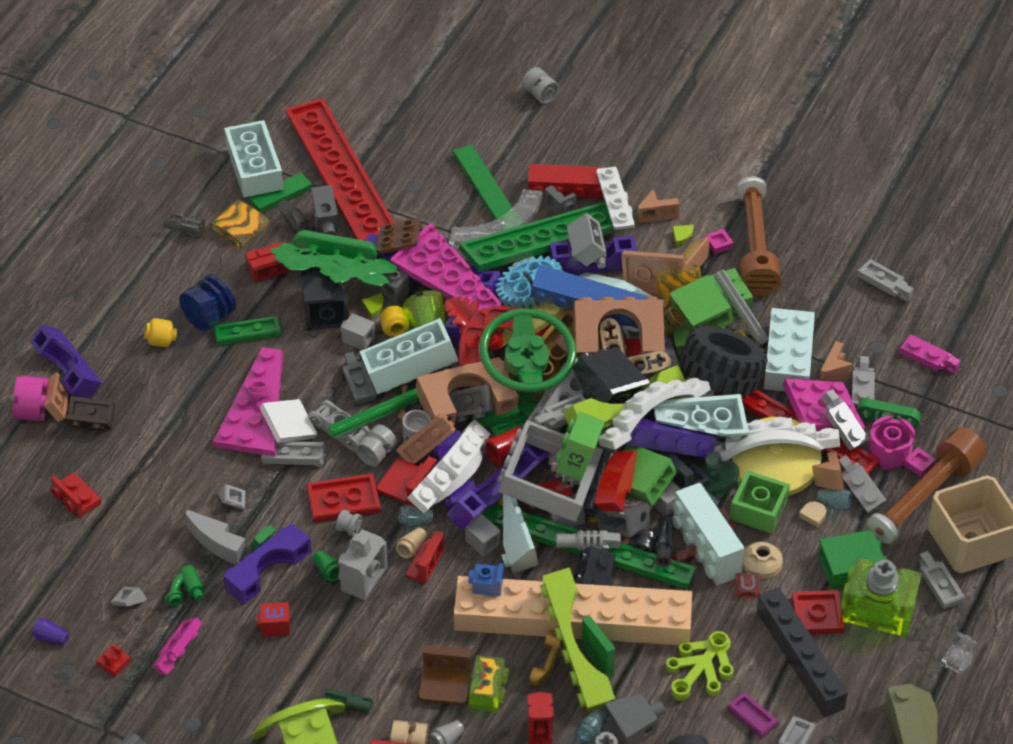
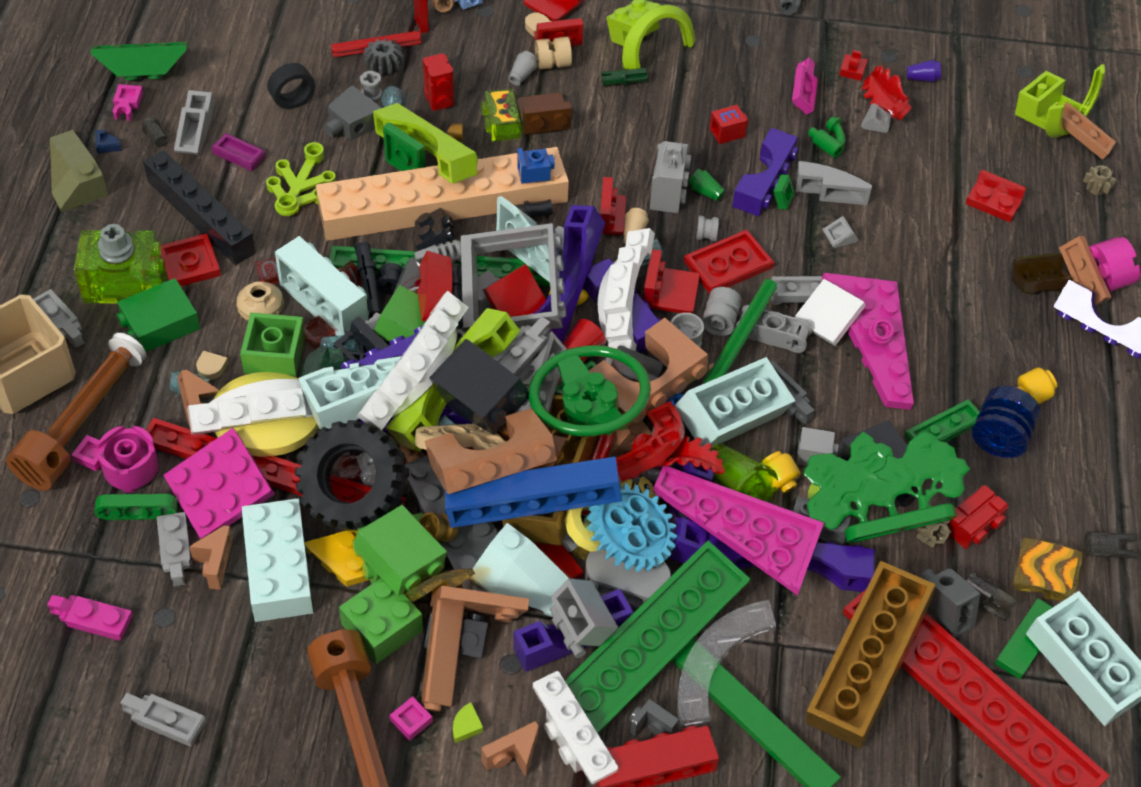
camera: 160 degrees right, 5 degrees up
(105, 614) = (886, 92): none -> red plant
(399, 236) = (831, 570): reddish brown bracket -> none
(400, 187) = (870, 654): none -> pearl gold brick
(426, 438) = (662, 308): nougat hinge -> none
(578, 445) = (483, 278): bright green brick -> none
(740, 307) = (352, 583): light grey axle -> none
(844, 420) = (187, 451): light grey hinge -> none
(861, 485) = (158, 401): light grey hinge -> none
(960, 653) = (31, 250): clear bracket -> none

